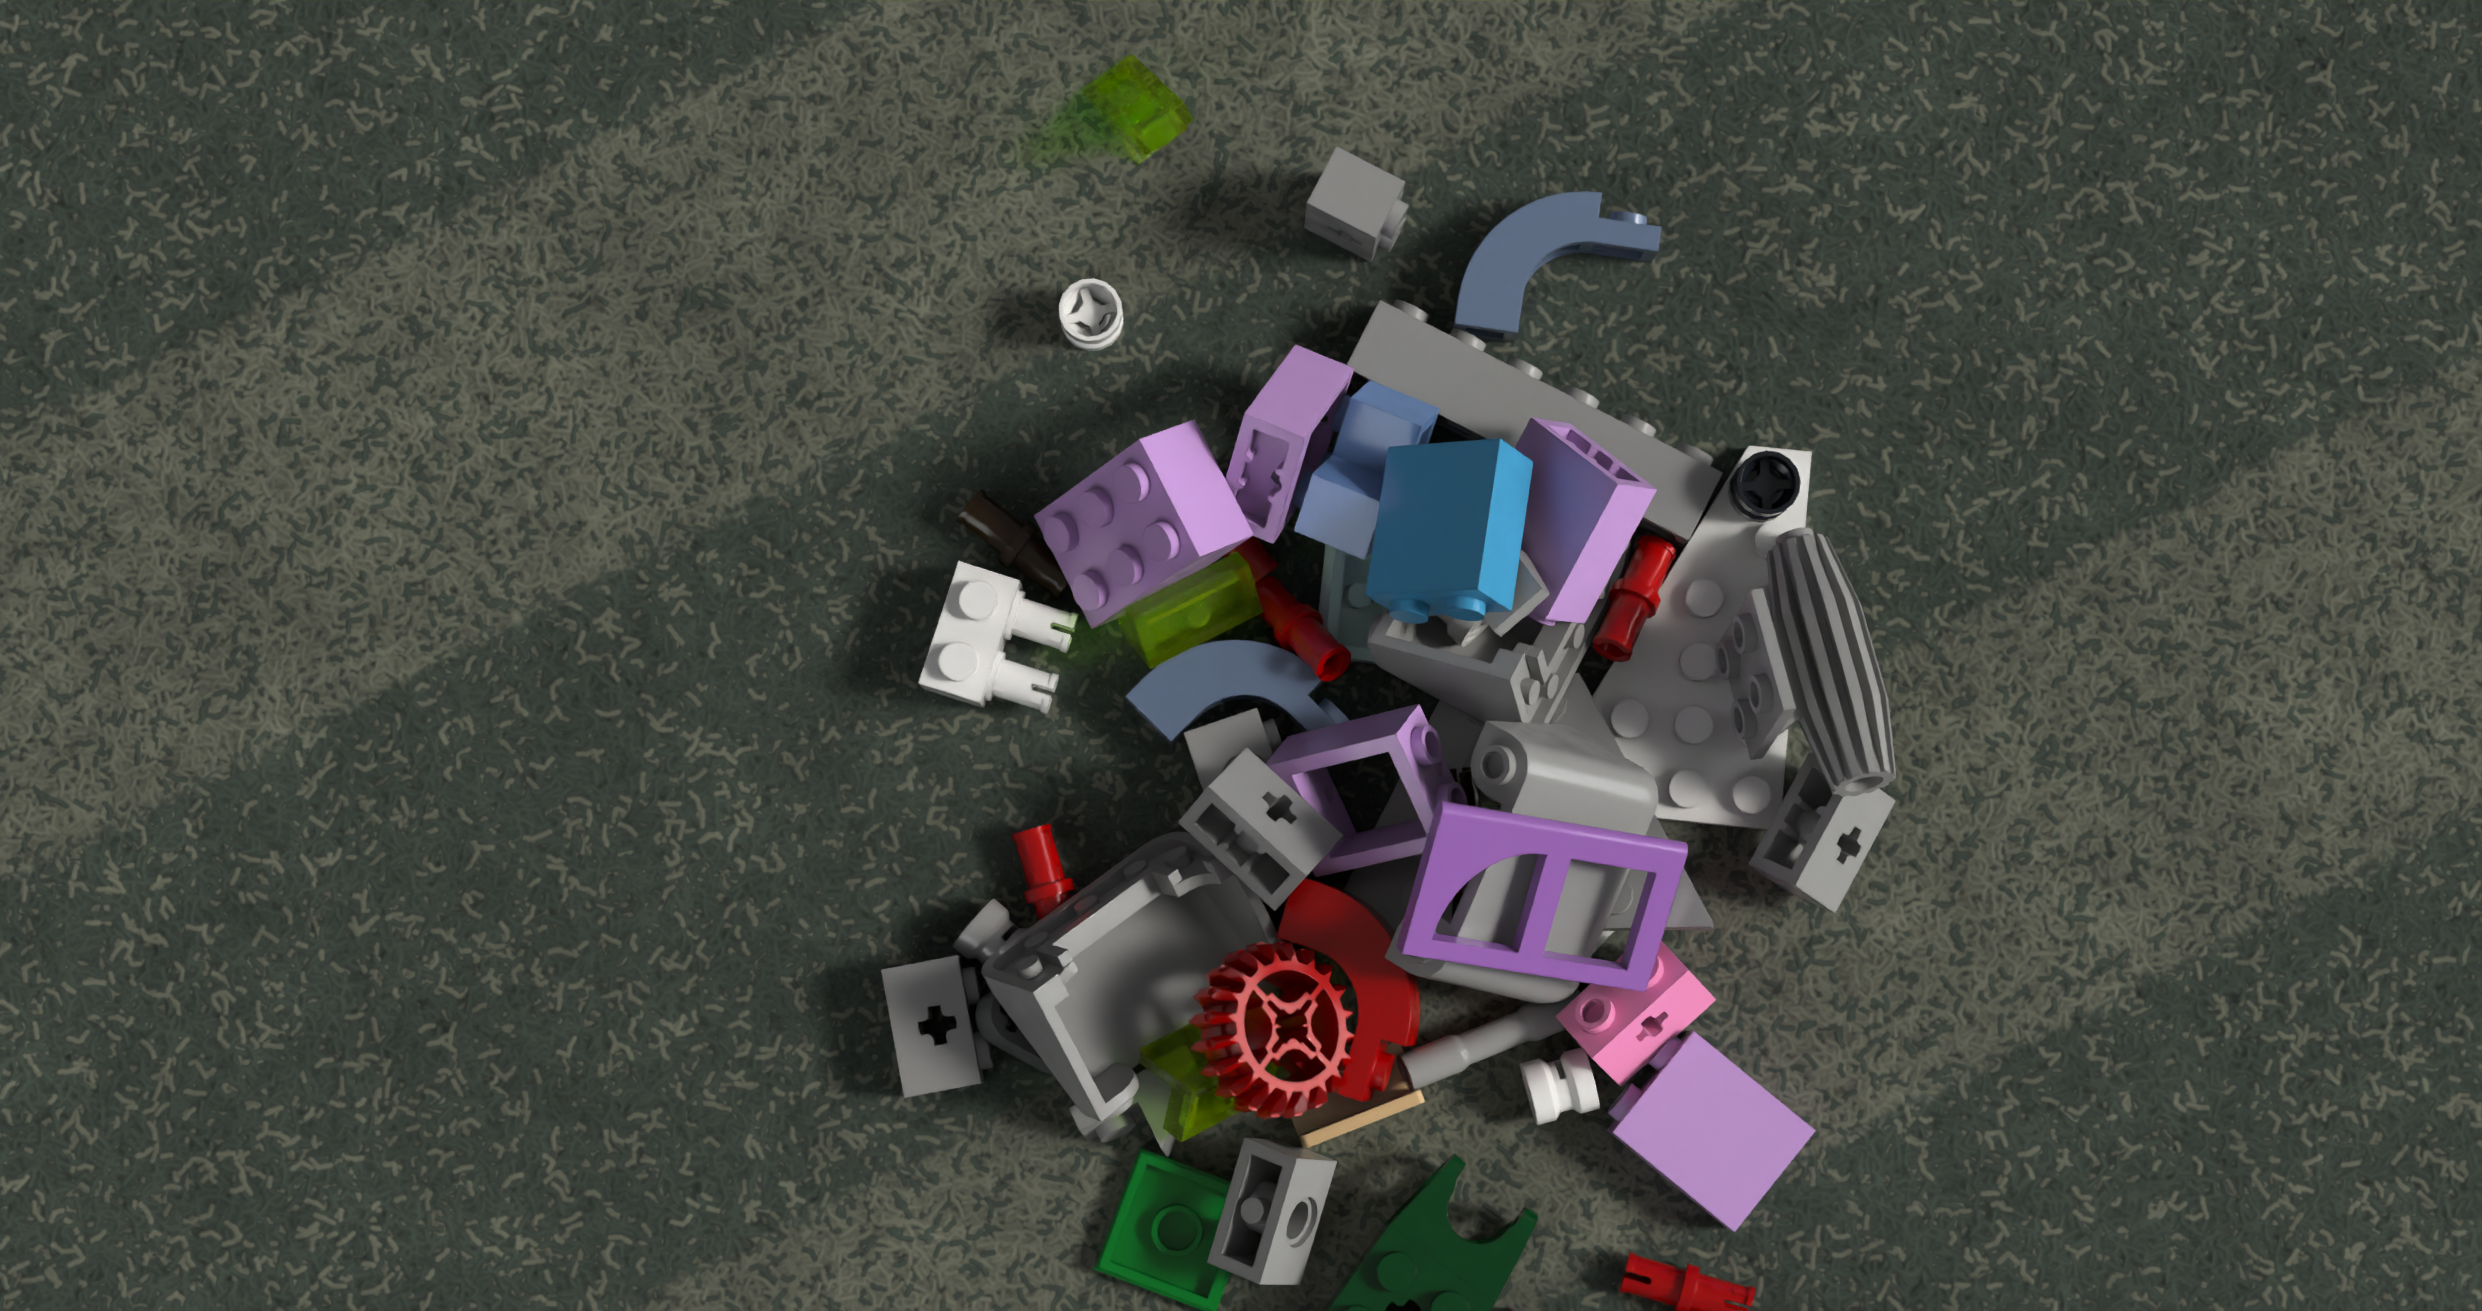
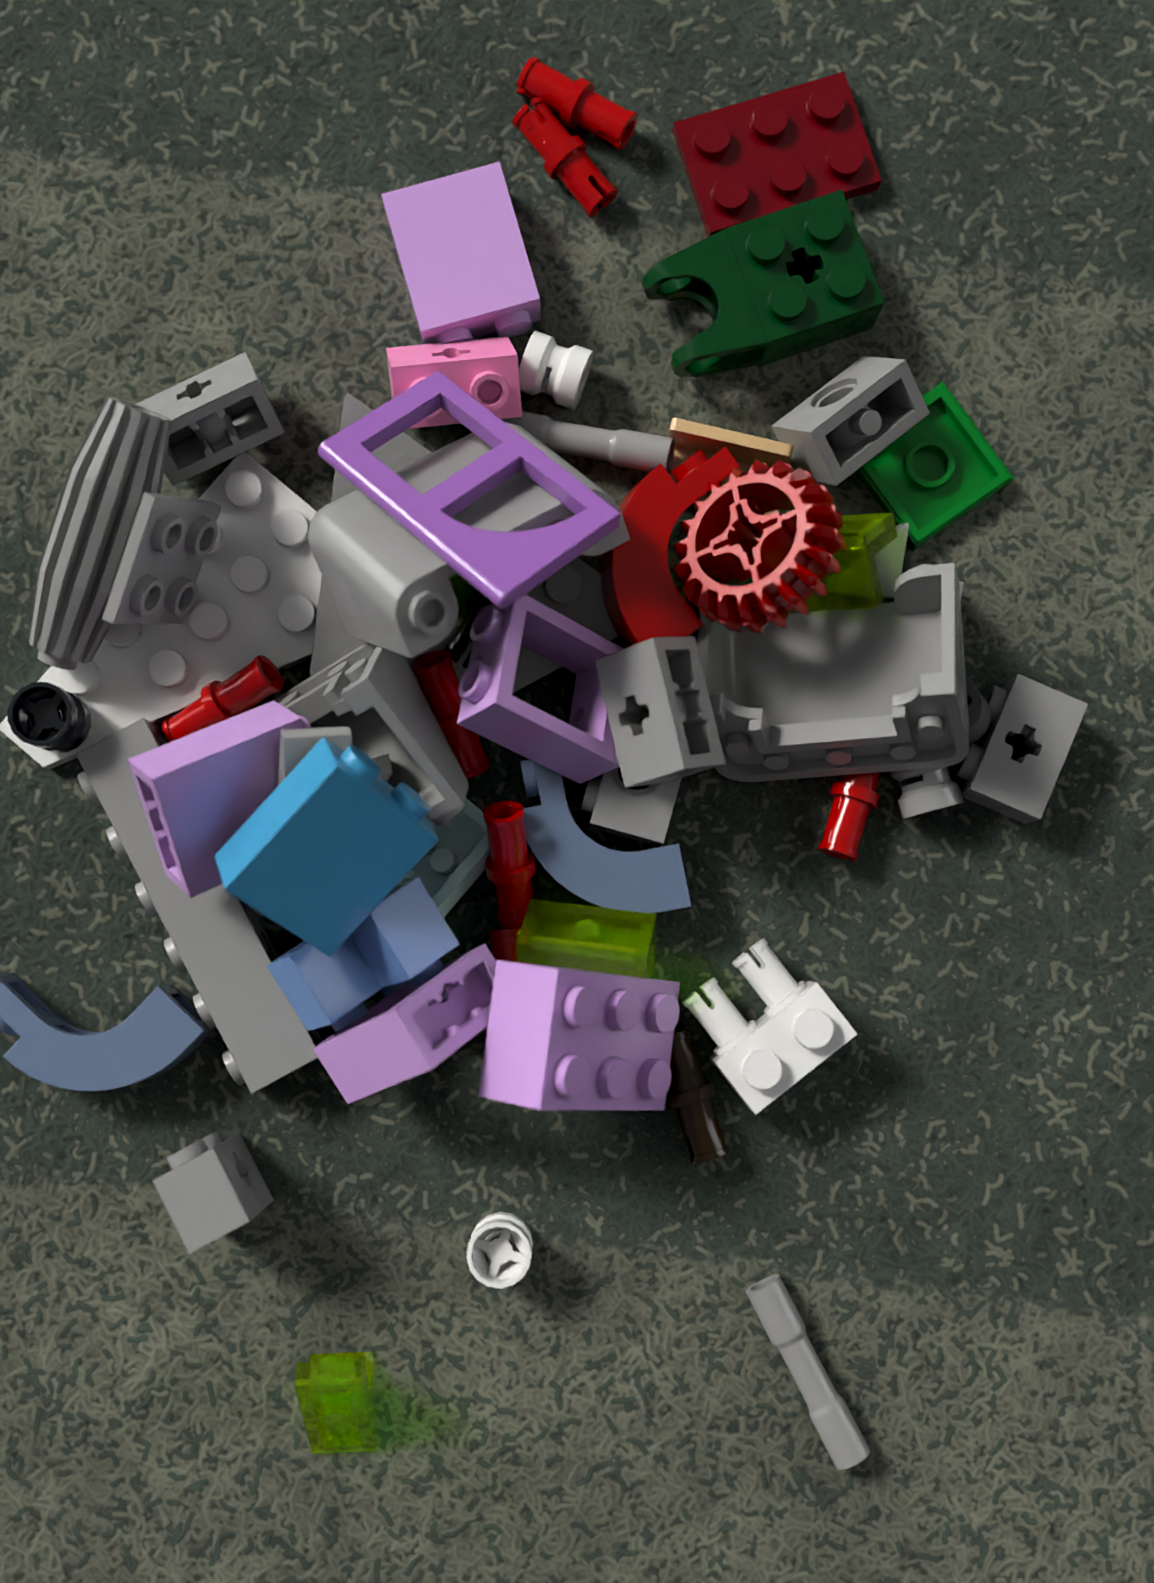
camera: 145 degrees left, 0 degrees up
(739, 371) = (826, 1407): none -> light grey piece
(1455, 730) = (441, 690): none -> red pin

